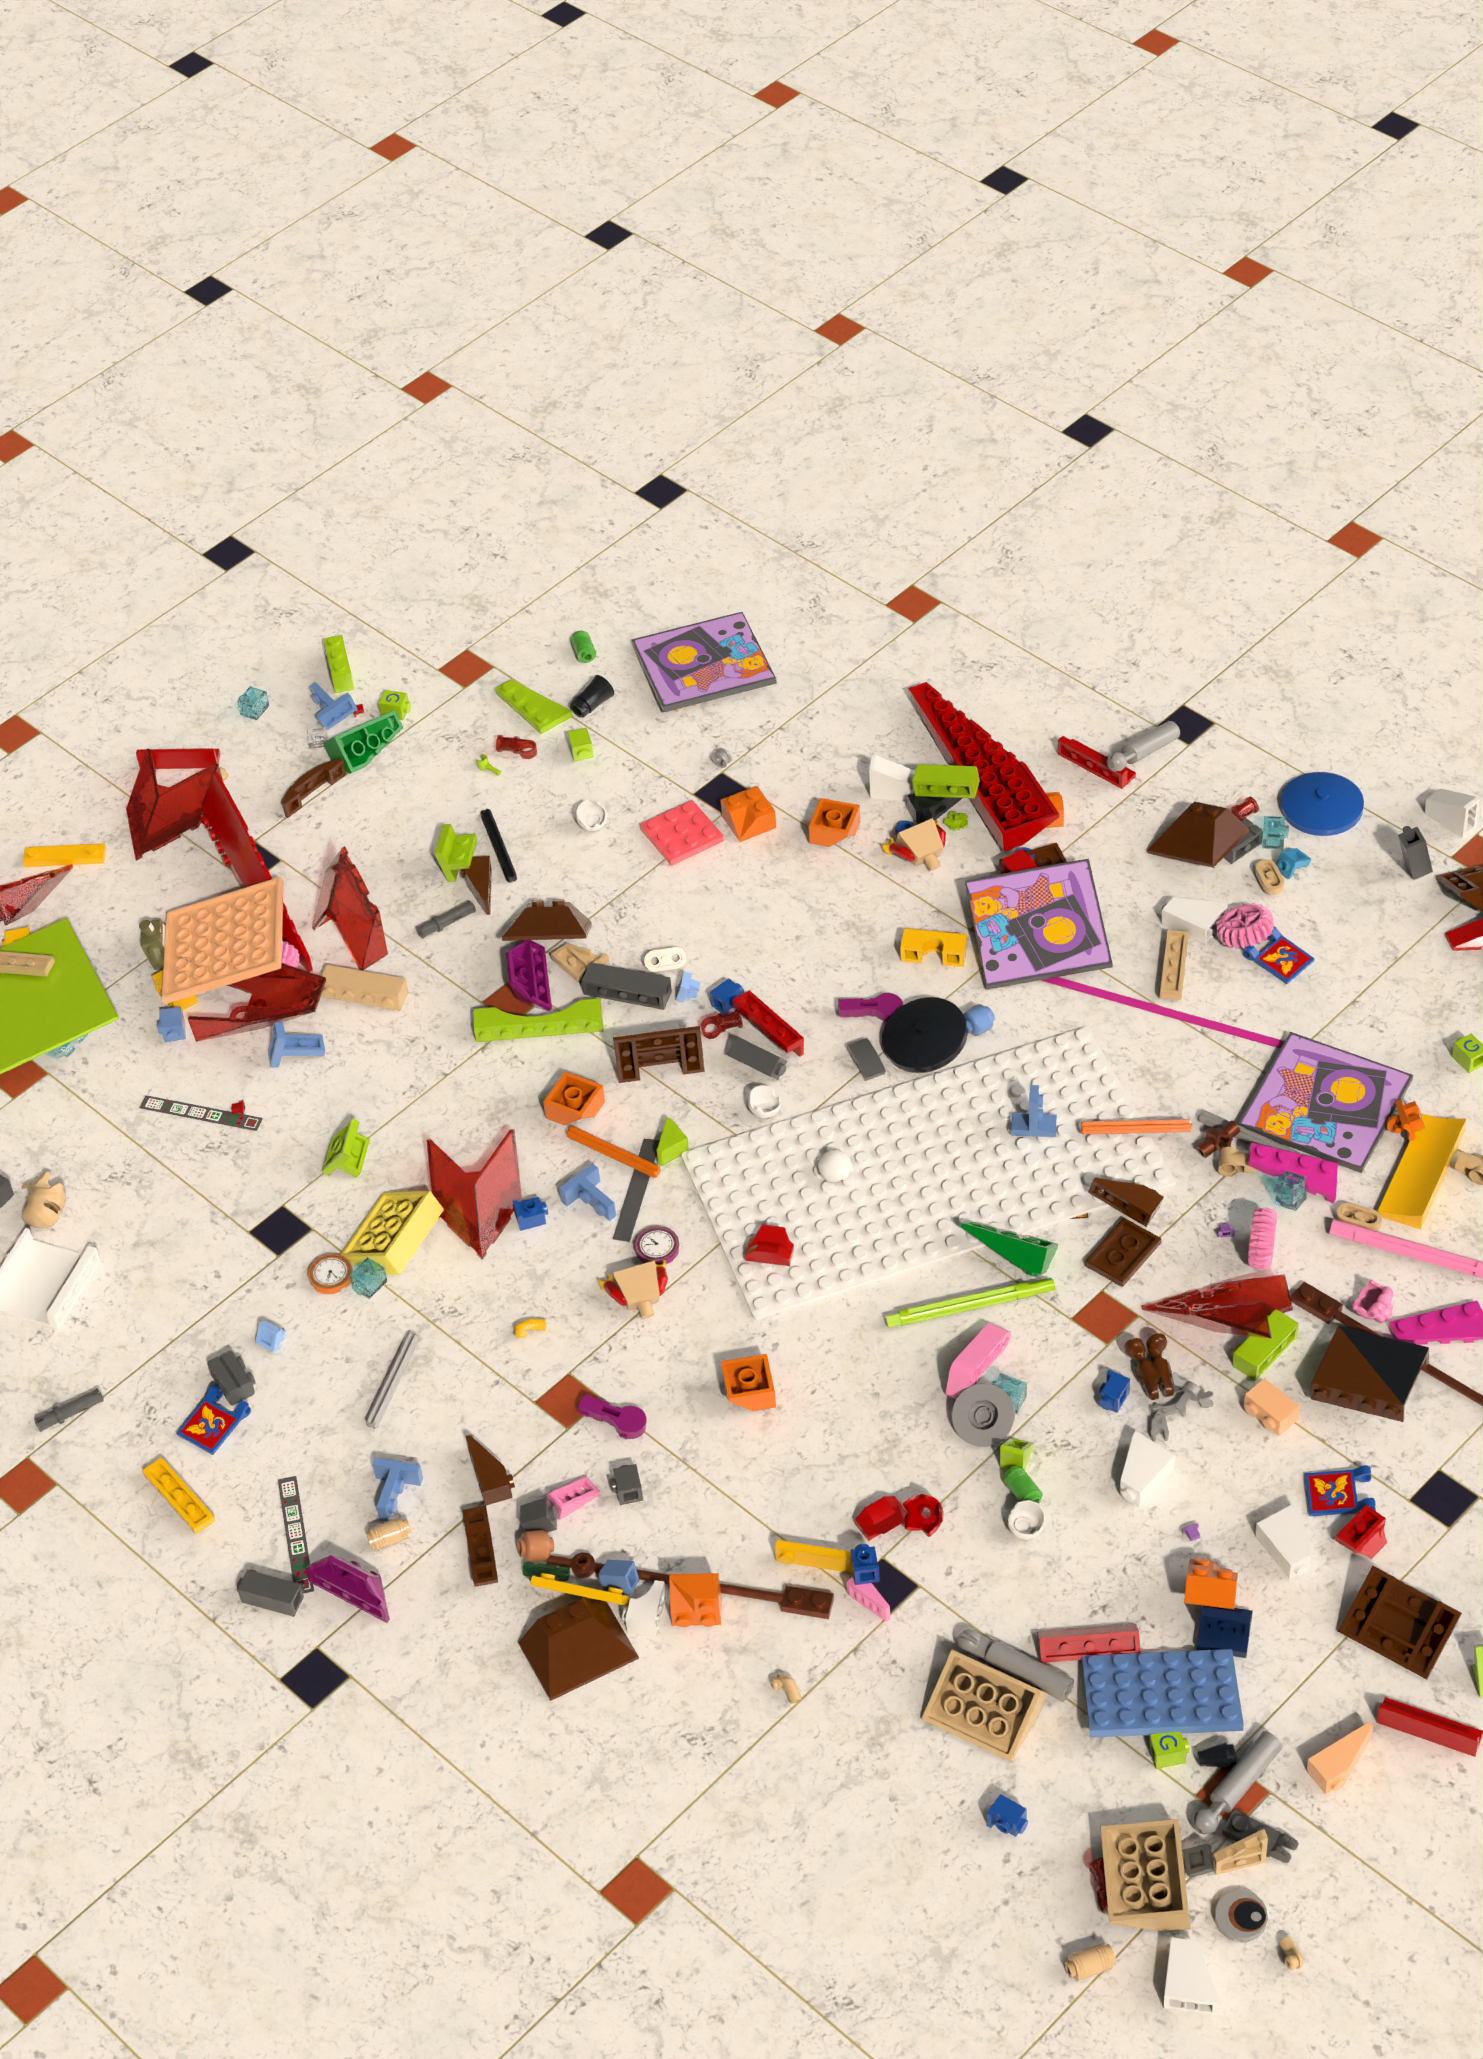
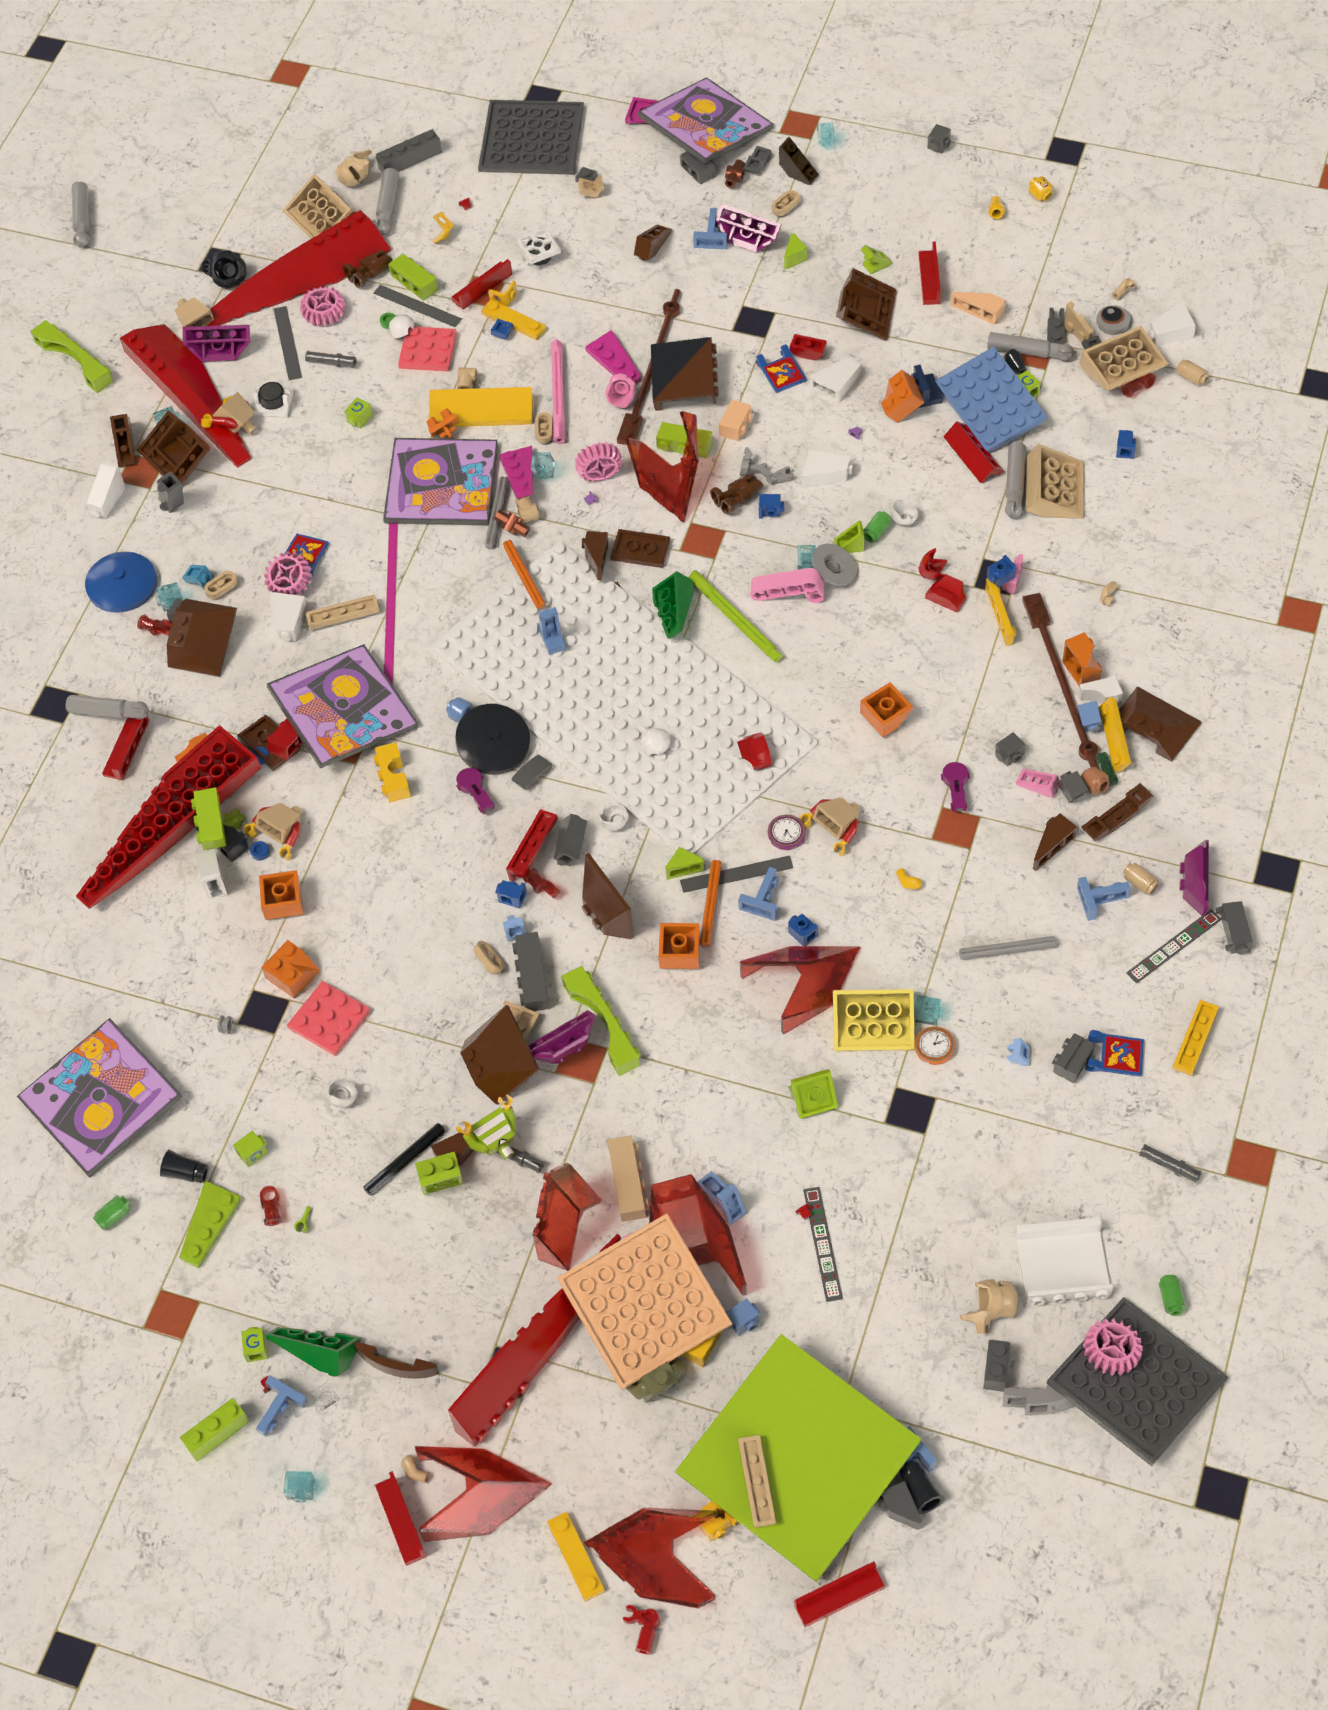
camera: 115 degrees left, 10 degrees up
(466, 891) = (493, 1131): none -> lime torso

